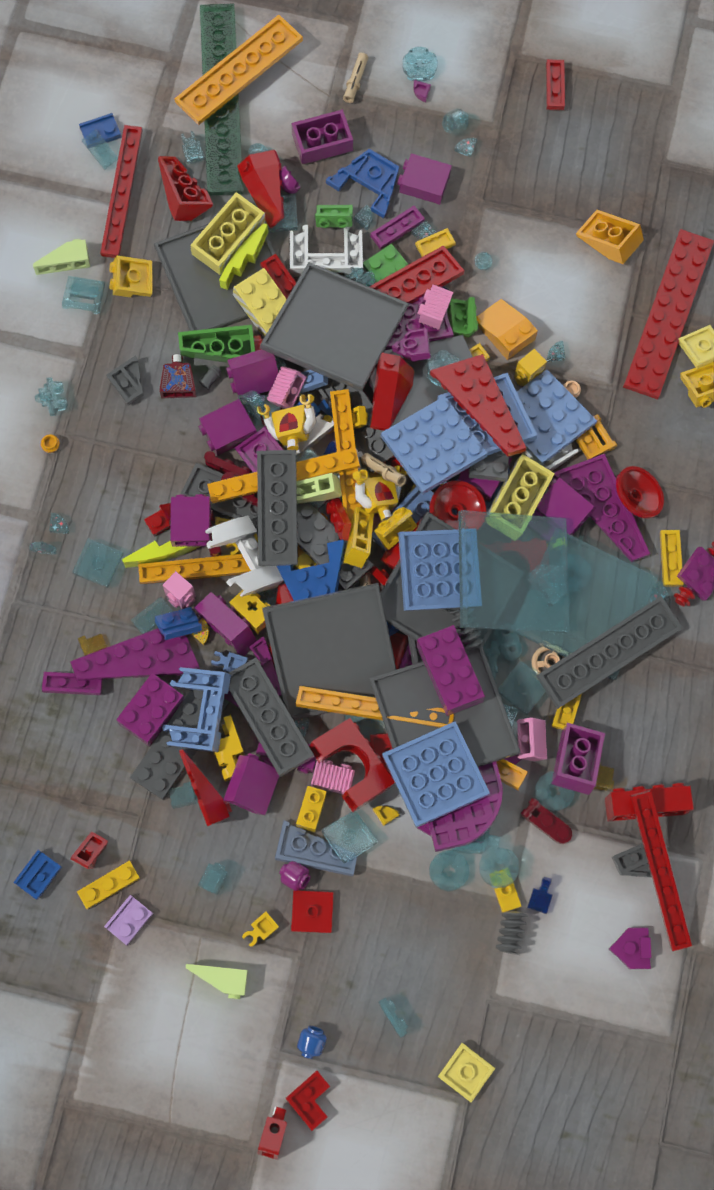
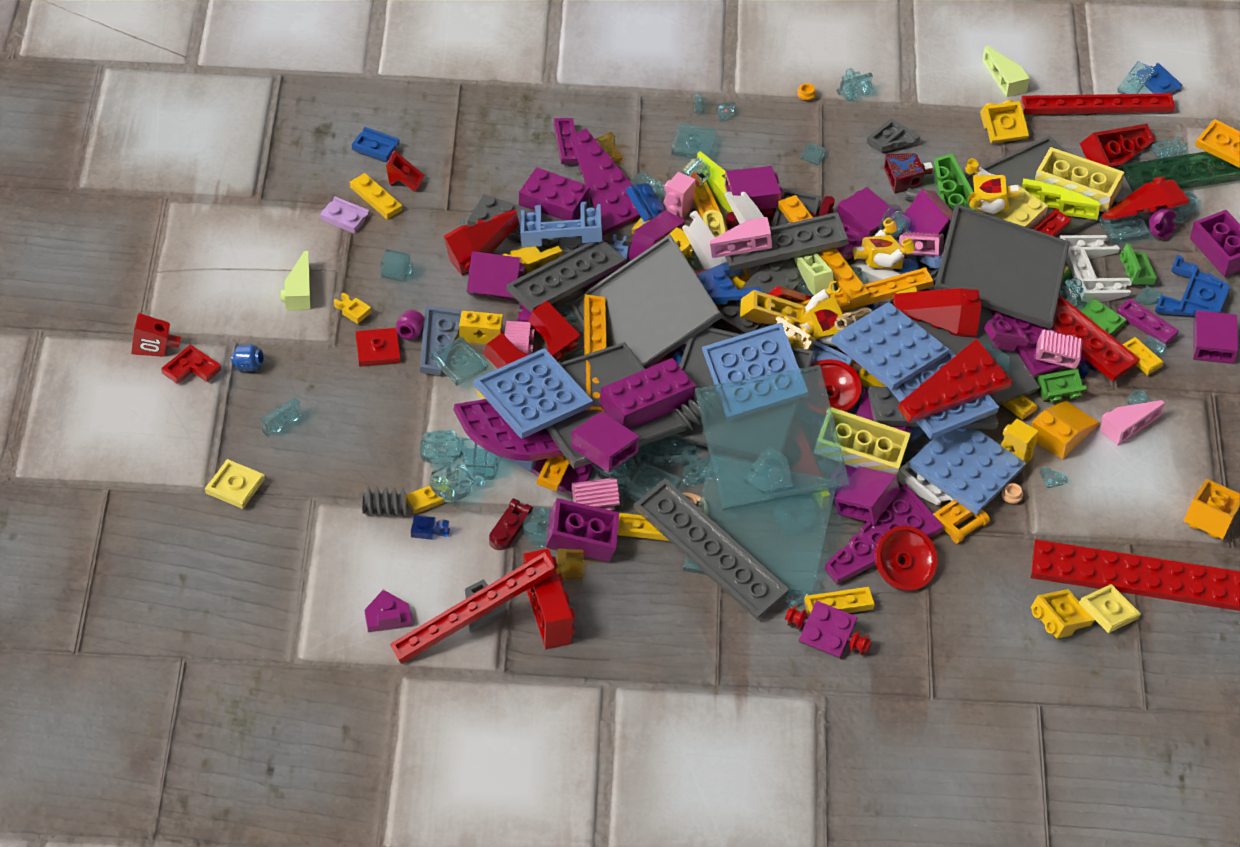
camera: 80 degrees right, 25 degrees down
(84, 289) = (978, 92): clear light blue plate -> none
(133, 456) = (813, 154): none -> clear light blue tile
(153, 569) = (698, 170): none -> clear light blue head
(226, 566) = (715, 222): none -> light yellow plate
(246, 311) = (990, 190): none -> torso
(273, 537) = (744, 238): none -> bright pink slope
(505, 719) = (605, 441): none -> magenta brick
(510, 279) = (1129, 420): none -> bright pink slope

